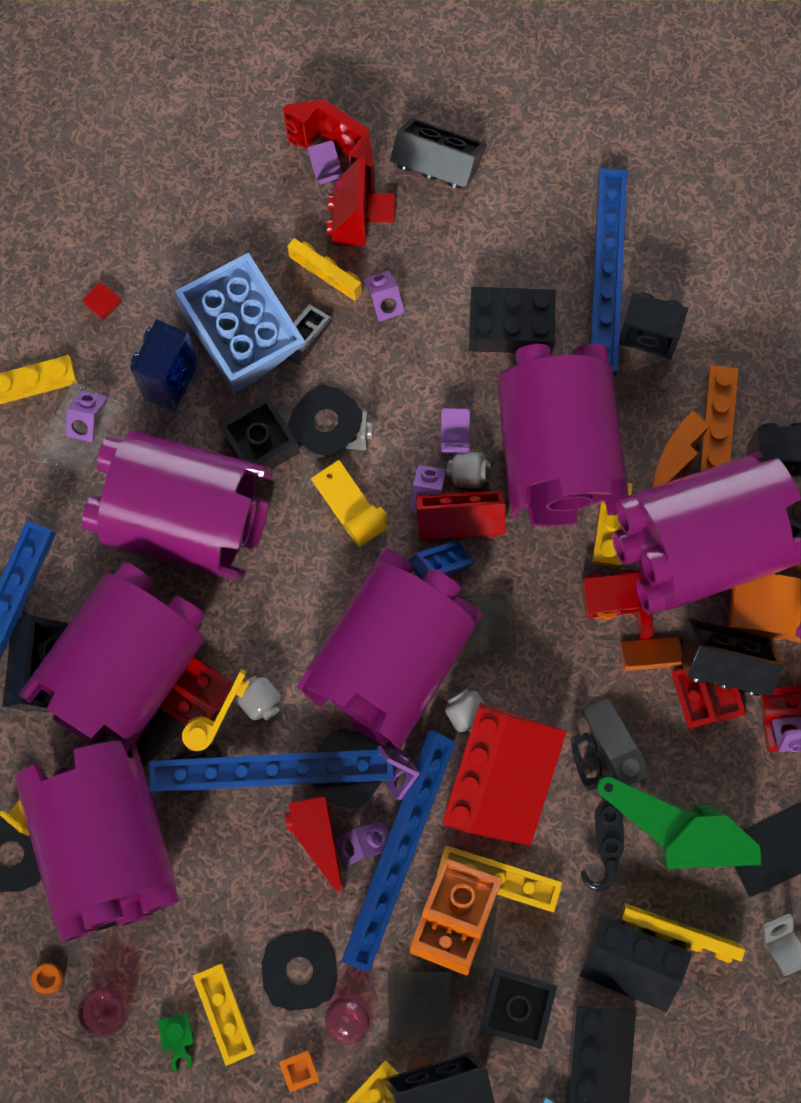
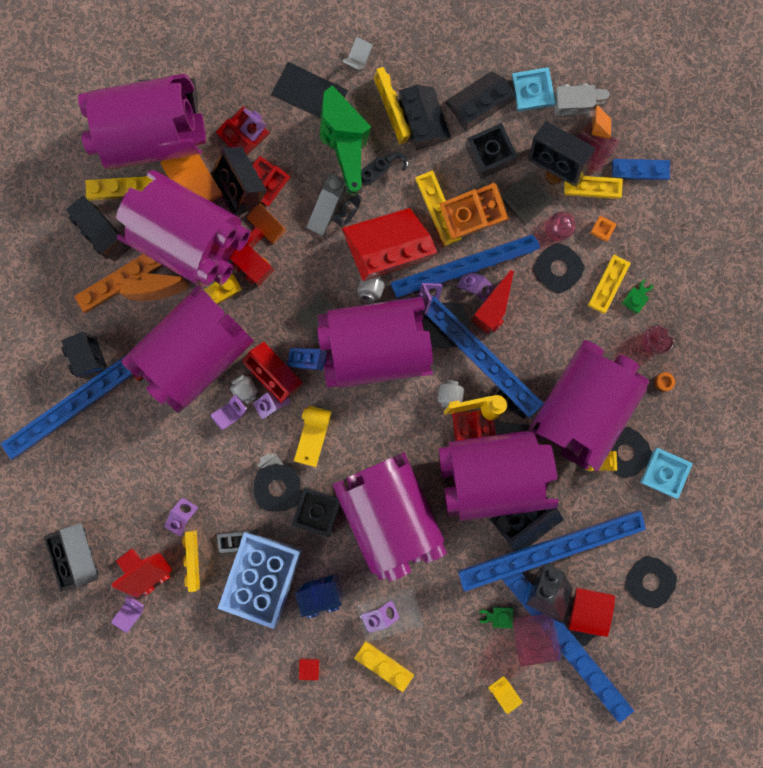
camera: 130 degrees left, 10 degrees up
(311, 119) = (110, 646): red slope -> none
(511, 318) = (141, 434): black brick -> none

